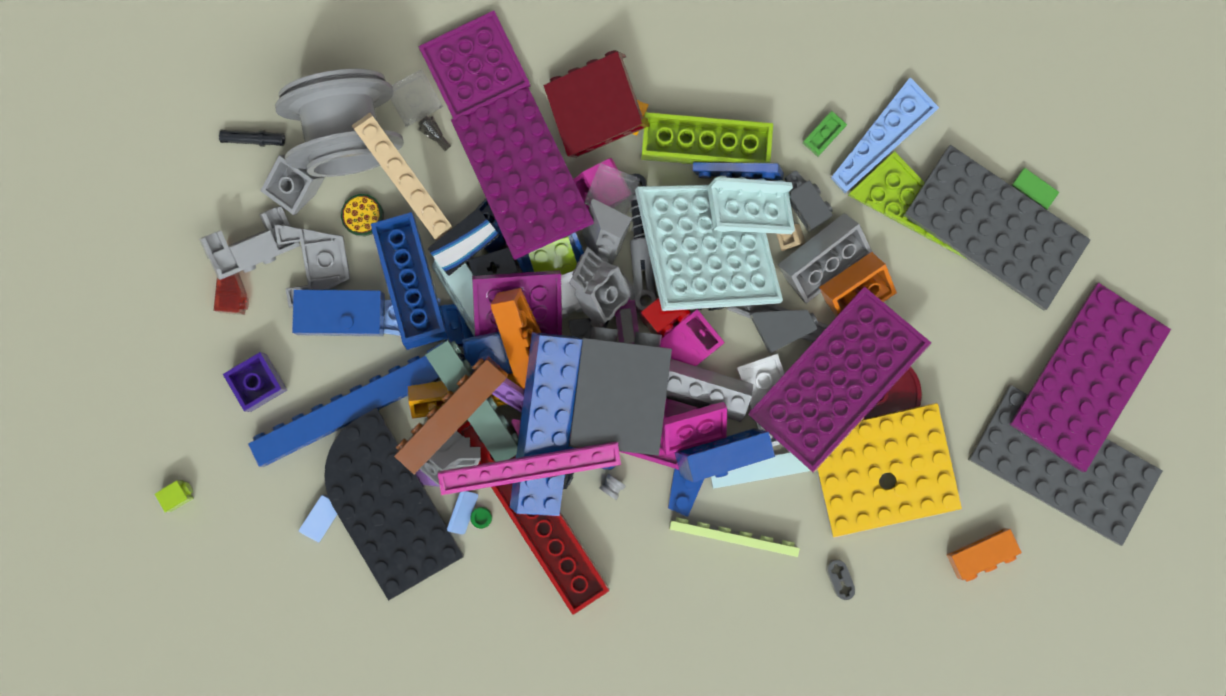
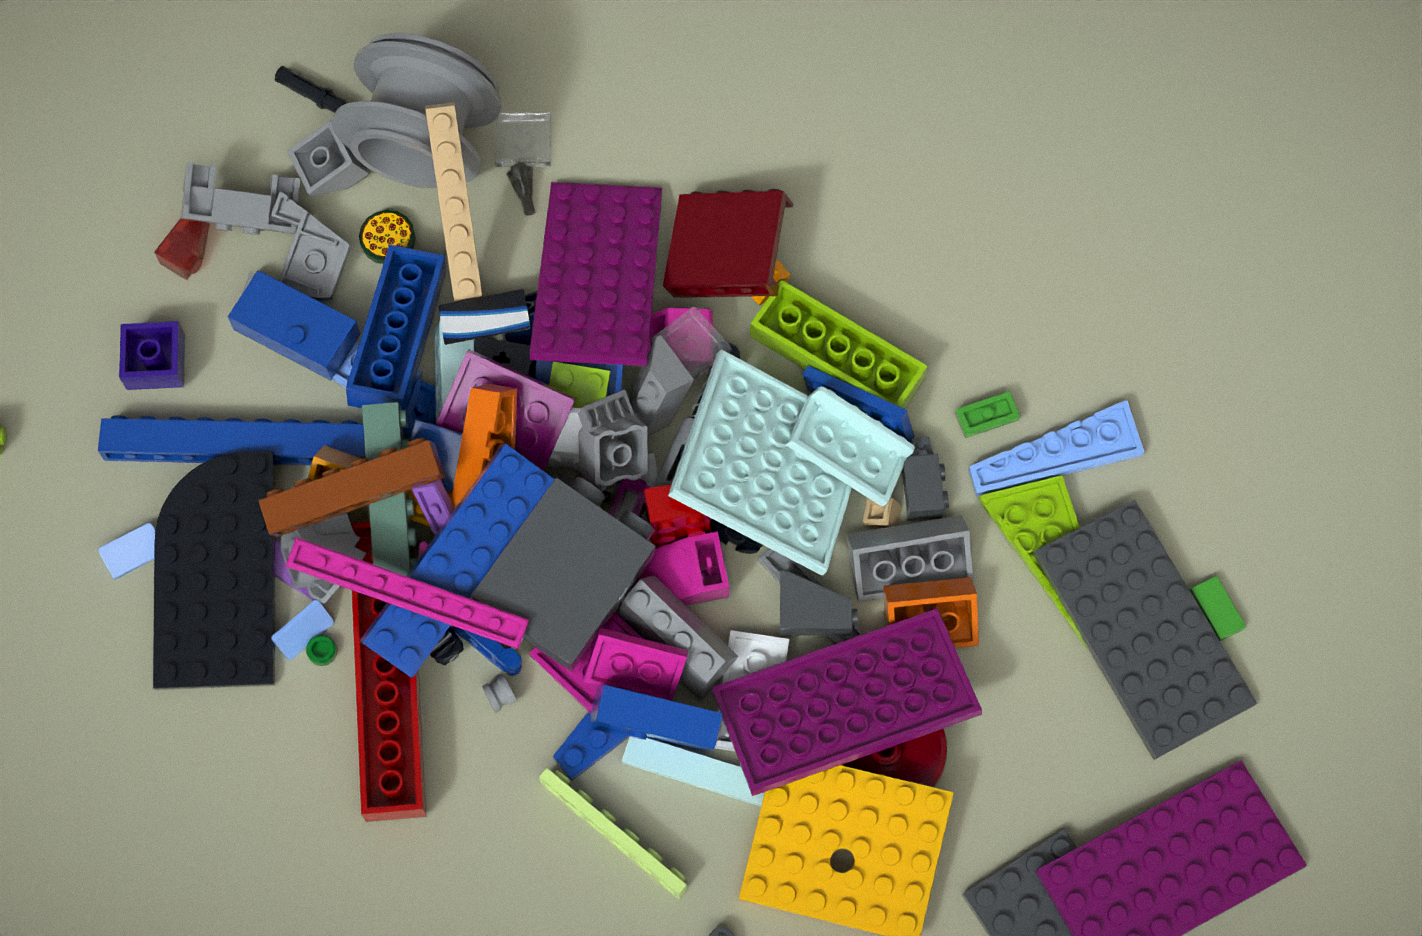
camera: 25 degrees right, 15 degrees down
(474, 65) = (613, 137): magenta plate -> none

